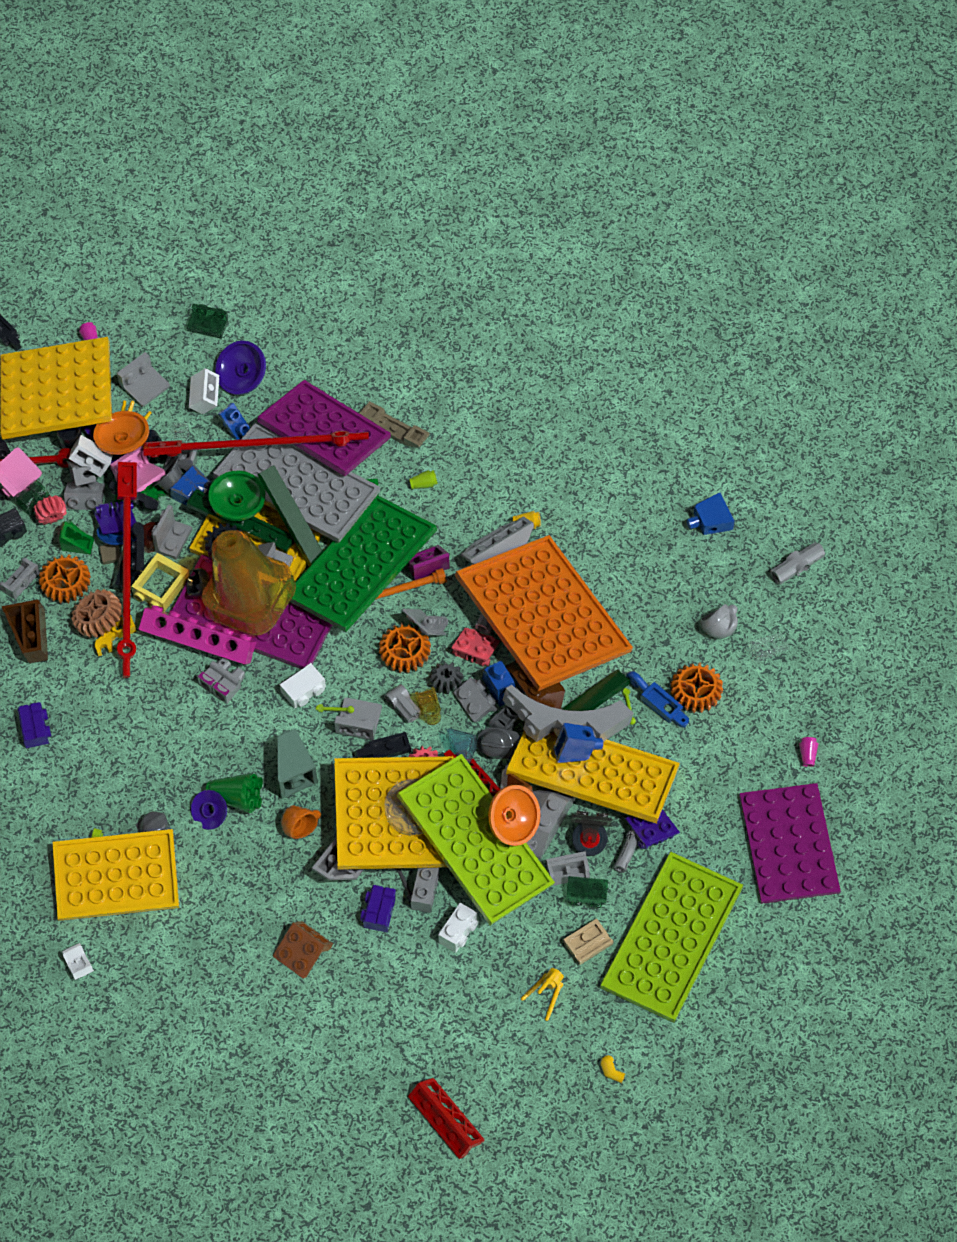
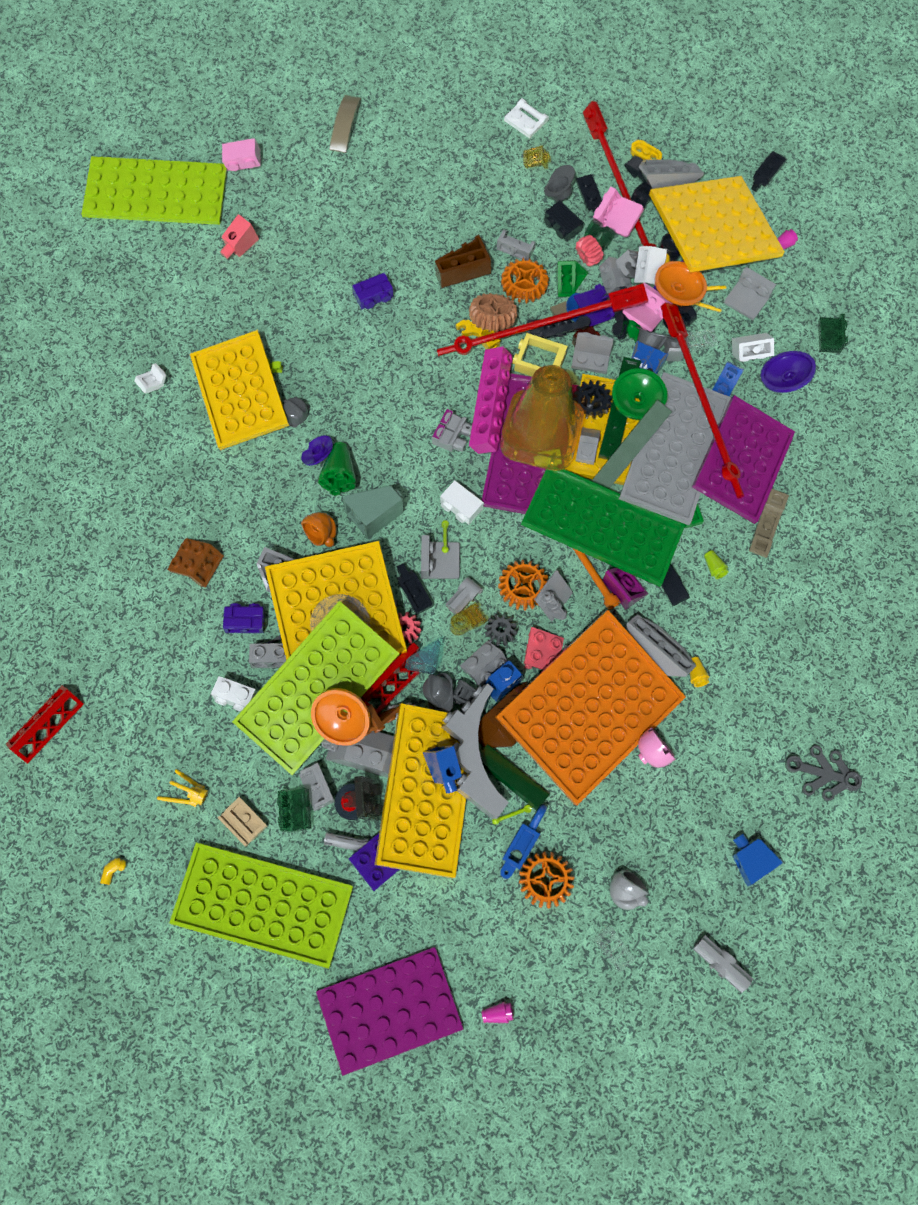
camera: 75 degrees right, 10 degrees up
(443, 519) = (674, 587): none -> black slope
(595, 570) = (654, 750): none -> bright pink cylinder
(644, 441) = (826, 773): none -> dark grey plant

